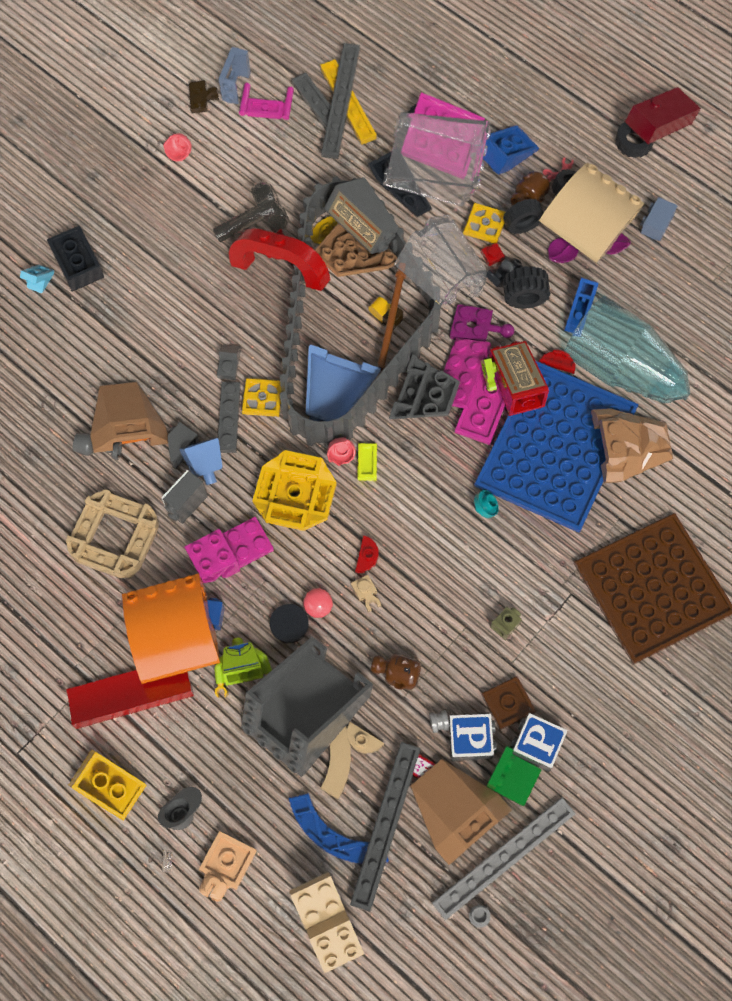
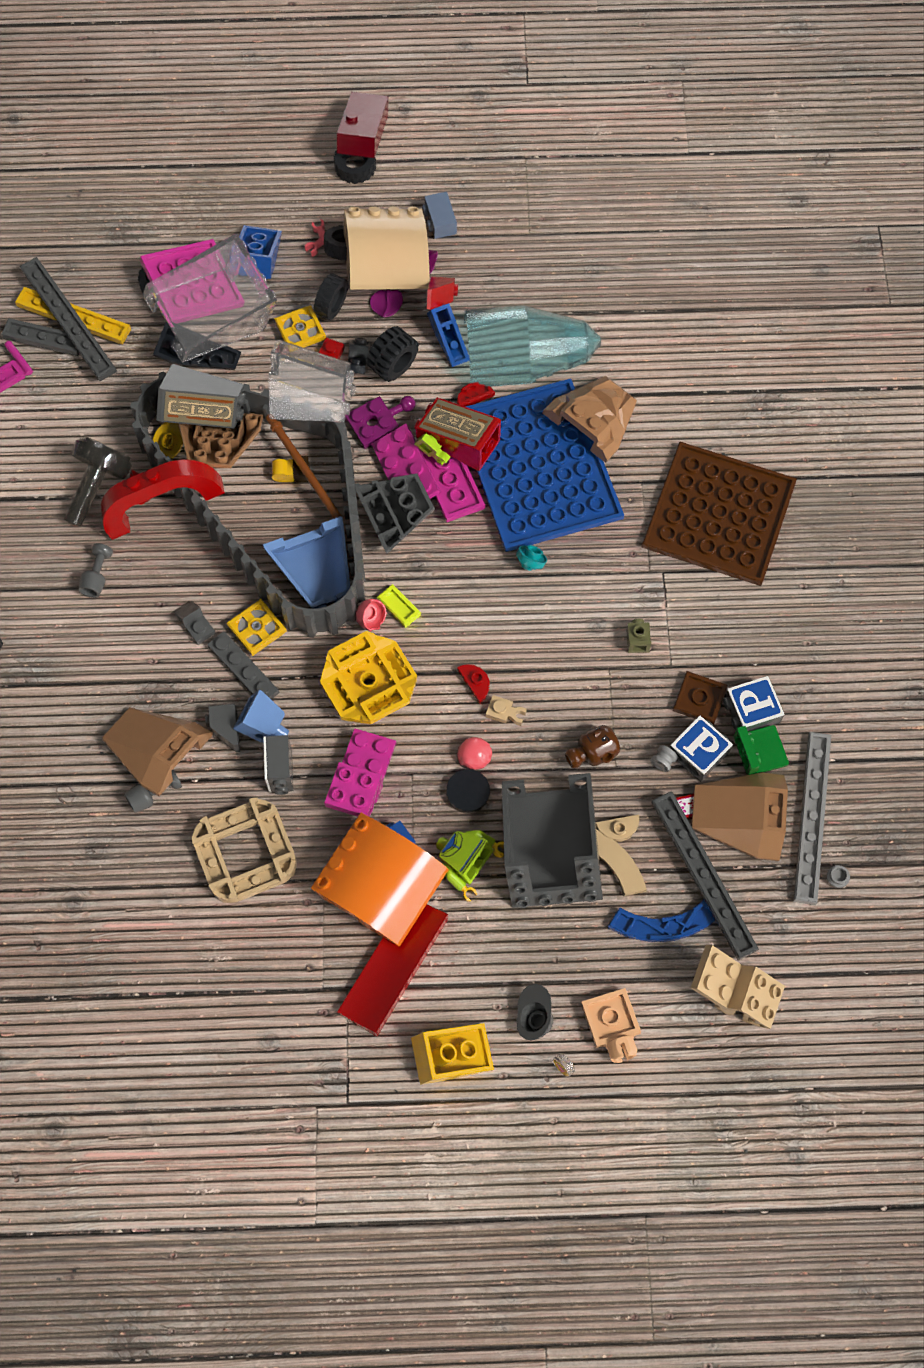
camera: 45 degrees left, 0 degrees up
(191, 282) = (92, 580): none -> dark grey piece
(532, 186) = (311, 270): reddish brown piece -> none
(601, 270) = (441, 292): none -> red slope

